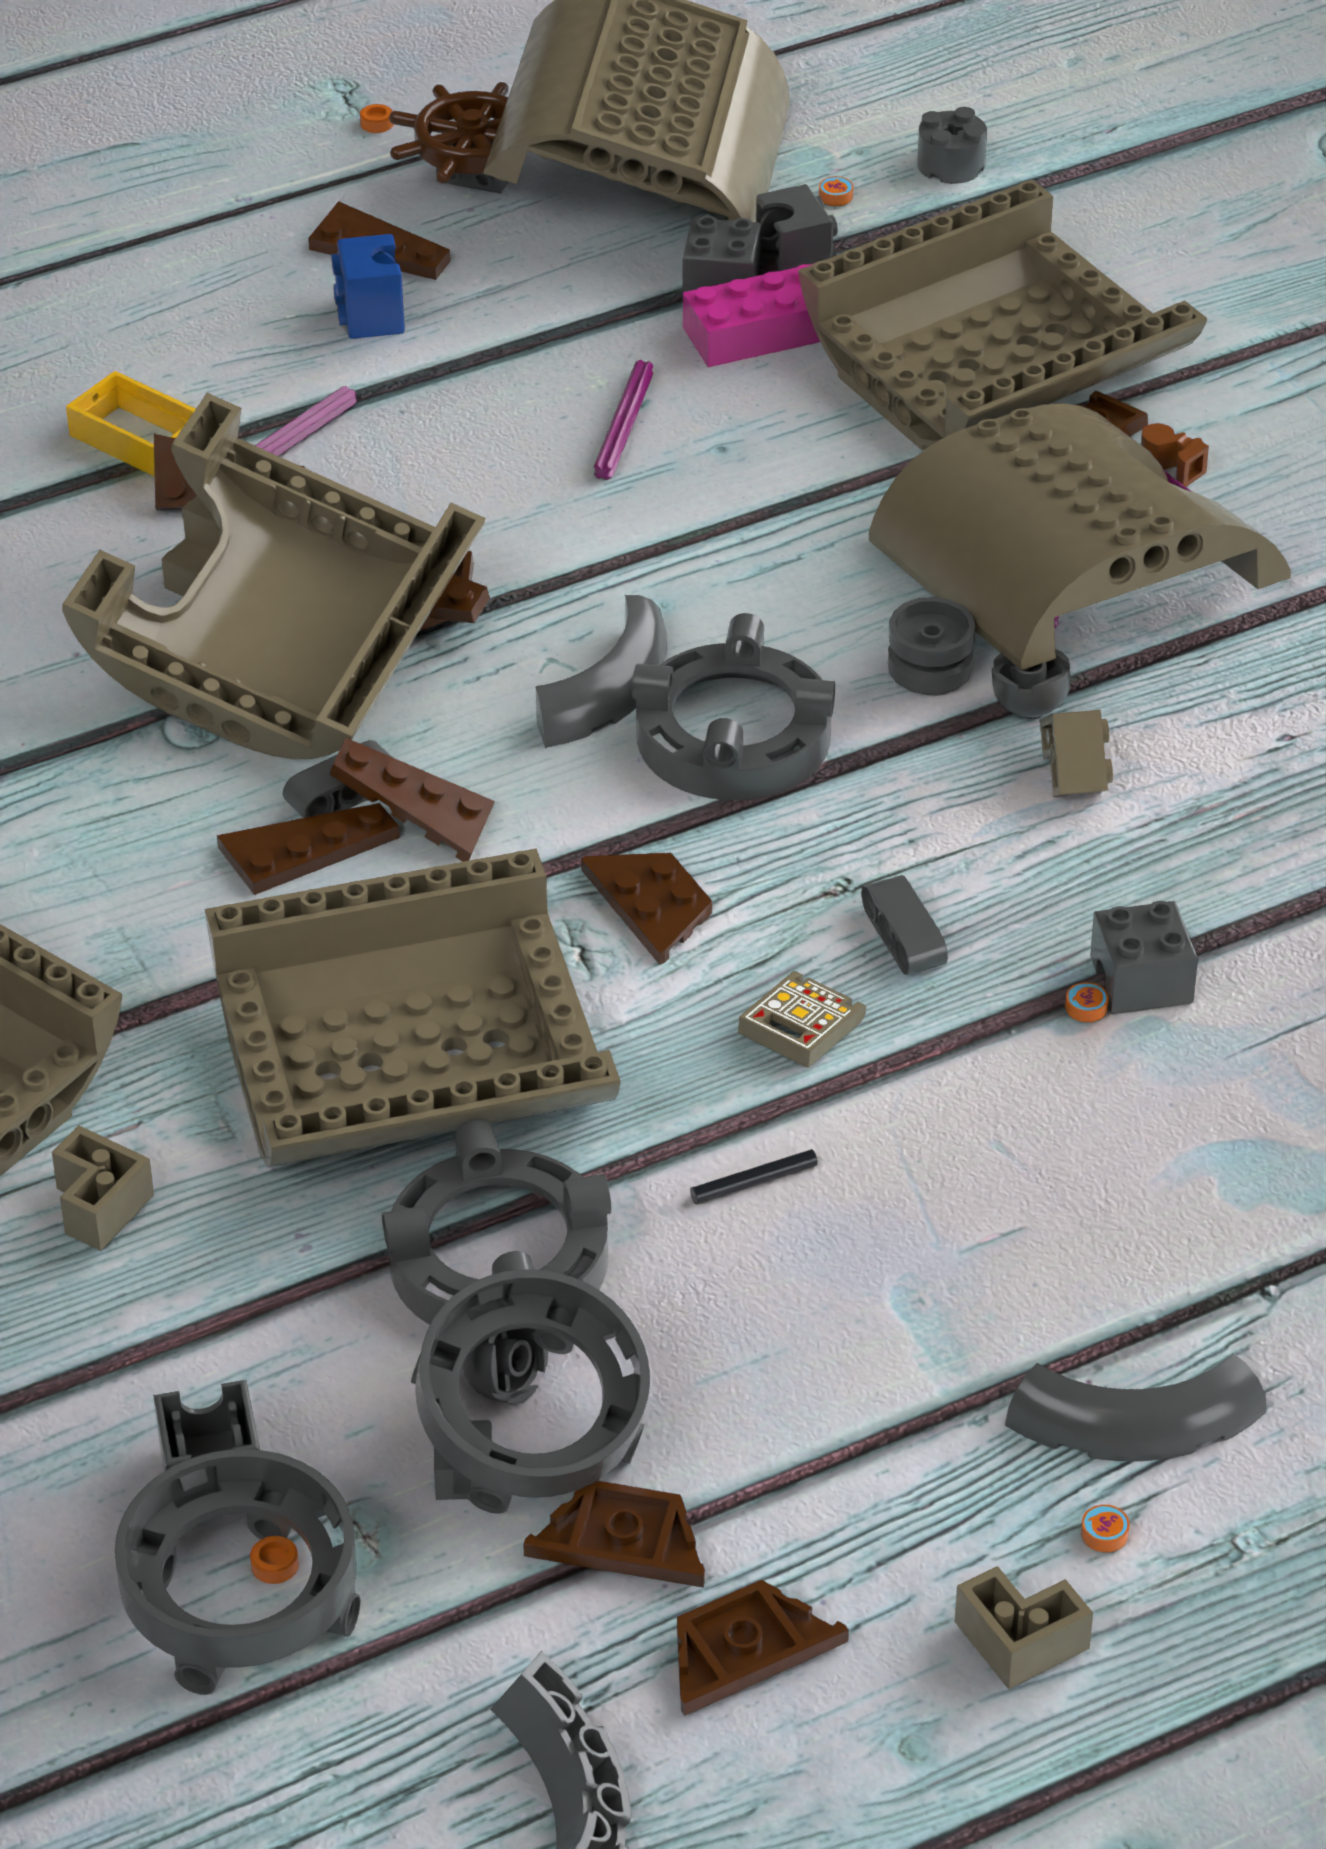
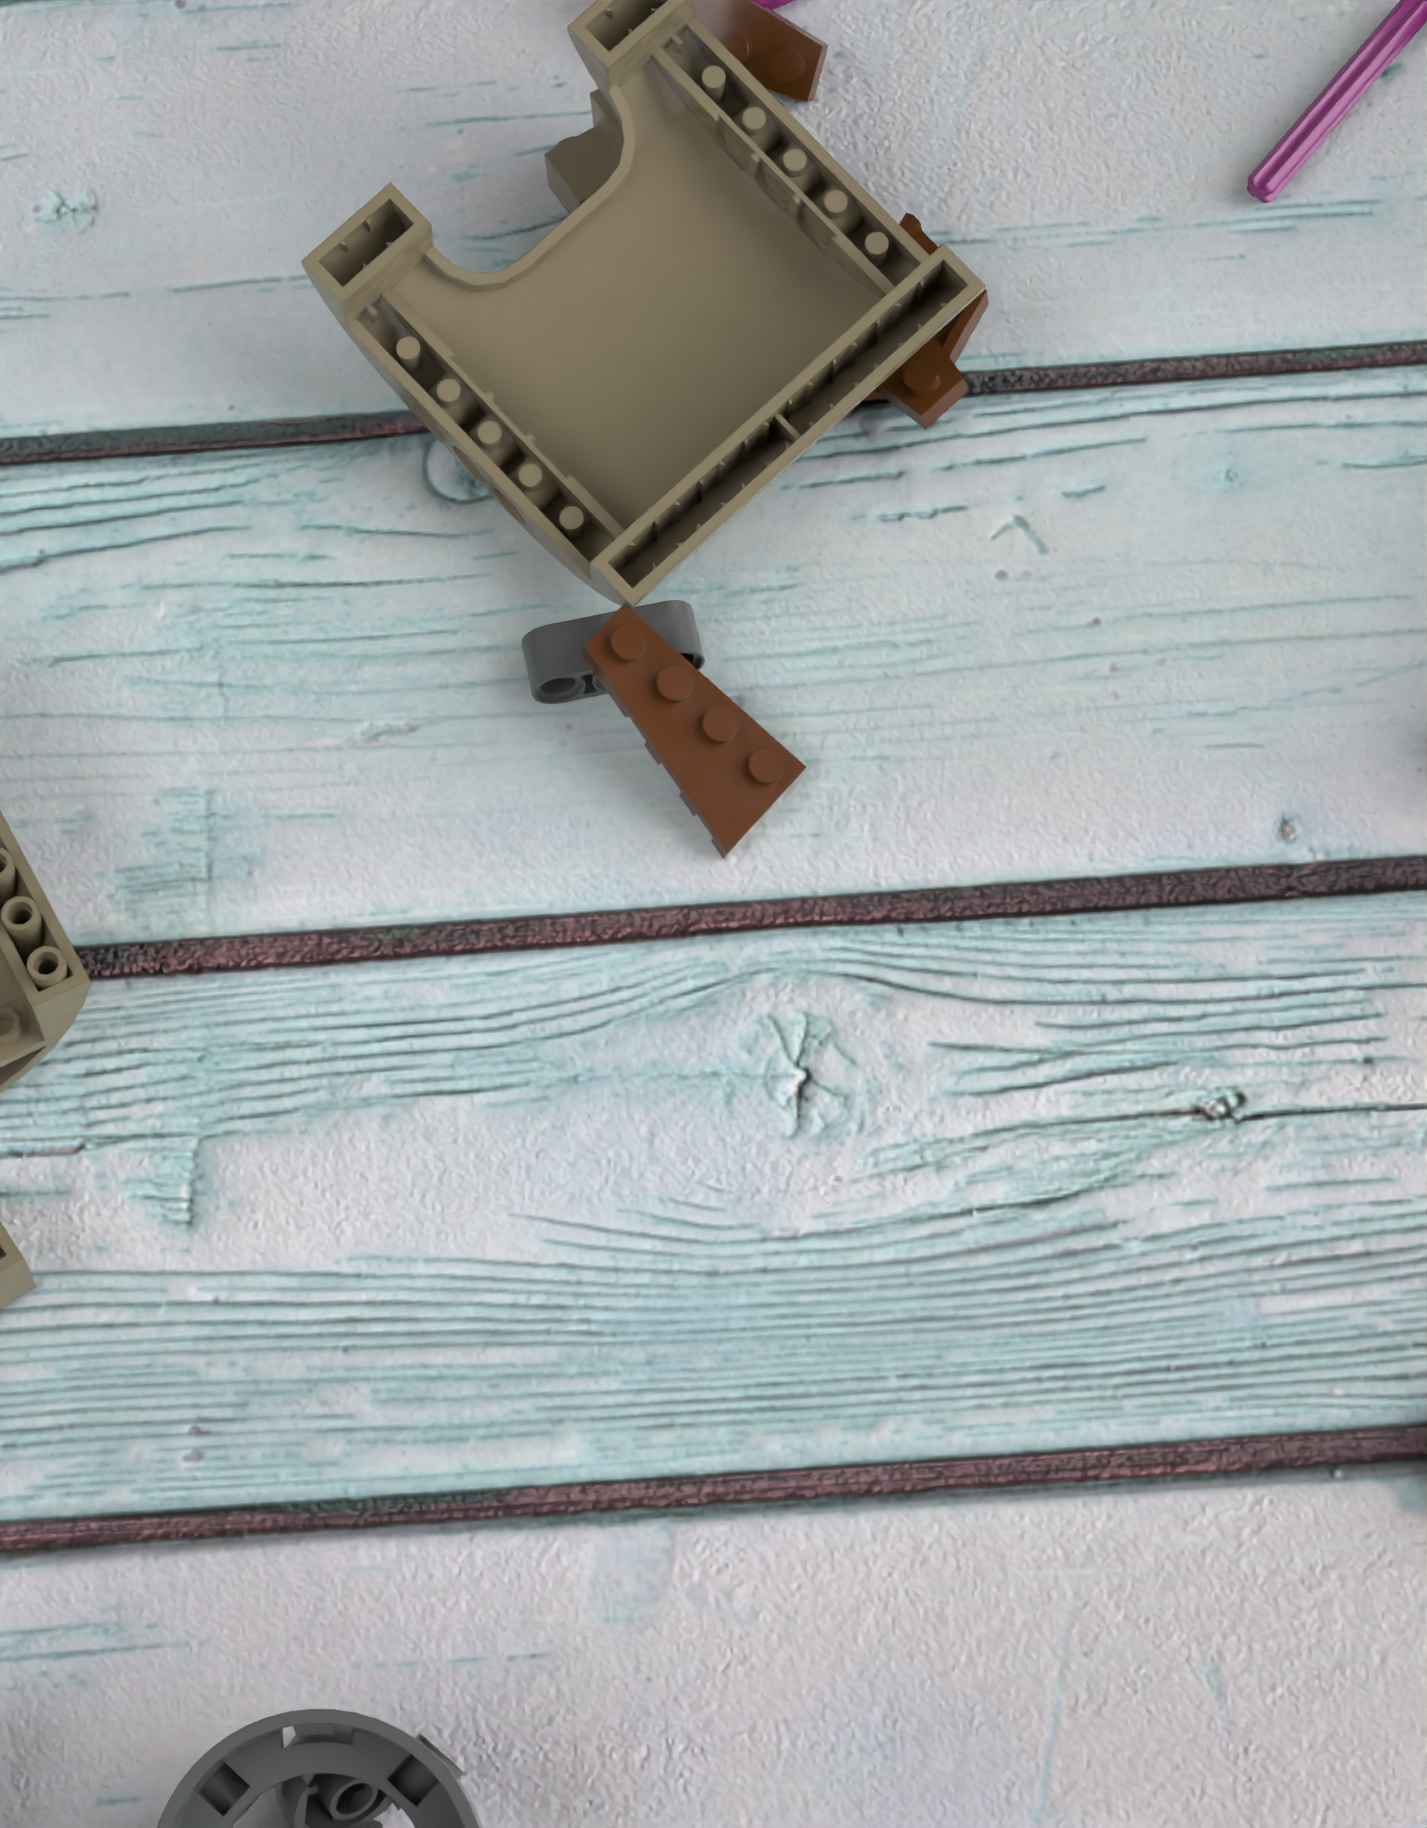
camera: 30 degrees right, 20 degrees up
(298, 847) = (511, 742): reddish brown wing -> none
(394, 981) = (503, 1062): dark tan slope -> none
(479, 1164) = (394, 1677): dark grey piece -> none
(604, 691) = (1085, 611): dark grey brick -> none
(651, 897) = (943, 1026): reddish brown wing -> none
(721, 764) = (1145, 821): dark grey piece -> none
(753, 1176) = (840, 1590): black bar -> none
(806, 1008) = (1053, 1328): dark tan container -> none
(904, 925) = (1268, 1227): dark grey beam -> none

